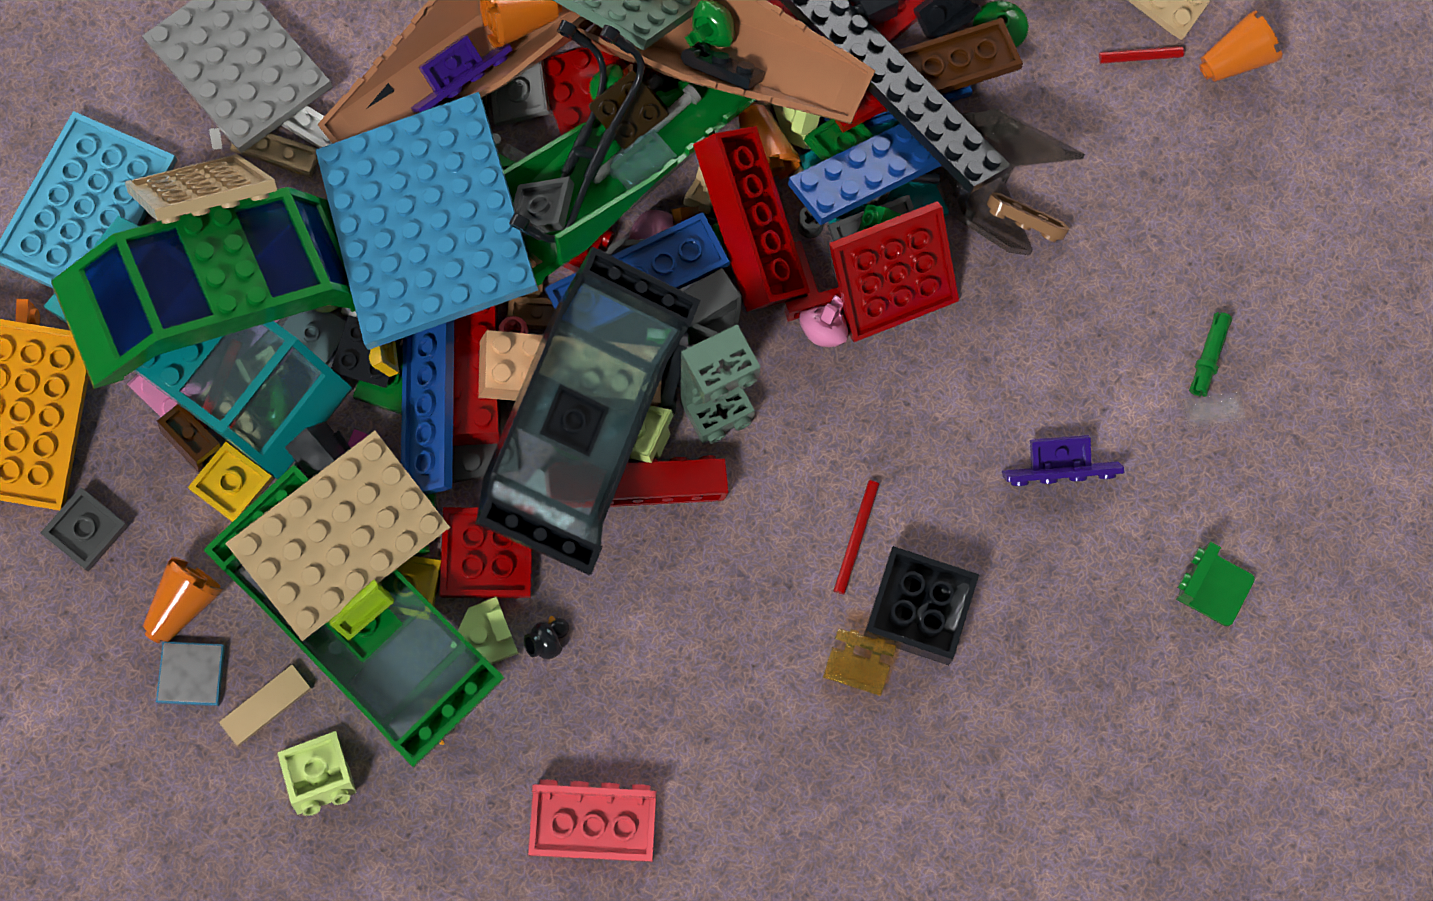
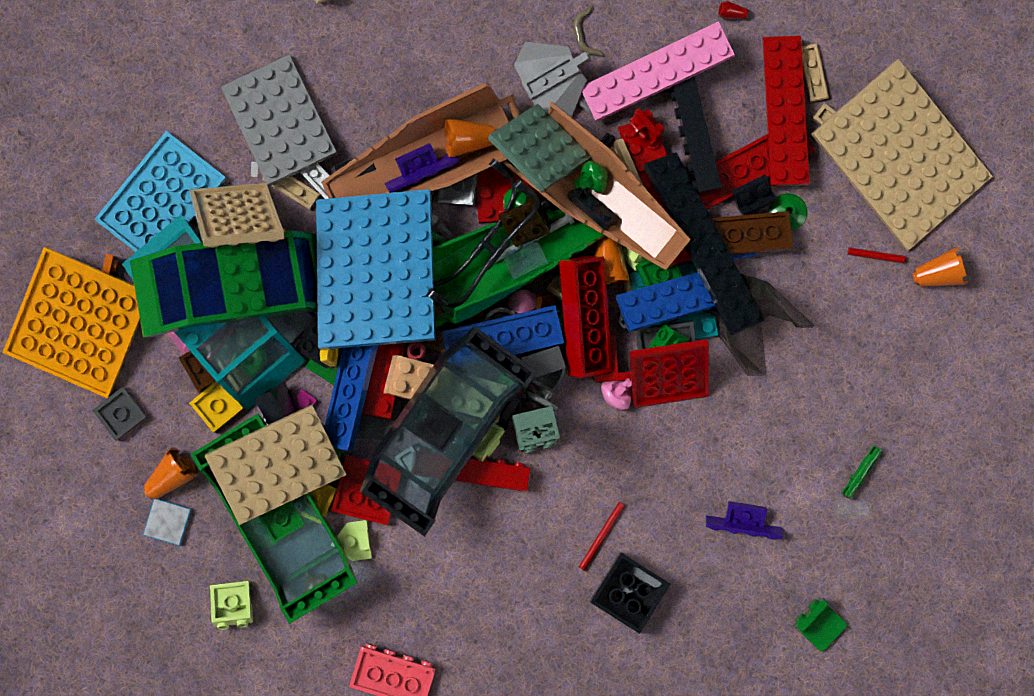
camera: 15 degrees right, 10 degrees up
(265, 705) = (208, 553): tan tile -> none
(362, 610) = (280, 513): lime tile -> none
(544, 638) = (389, 554): black animal -> none
(545, 203) = (453, 277): dark grey plate -> none
(856, 670) = (578, 621): clear yellow plate -> none
(1027, 217) = (768, 351): medium nougat plate -> none

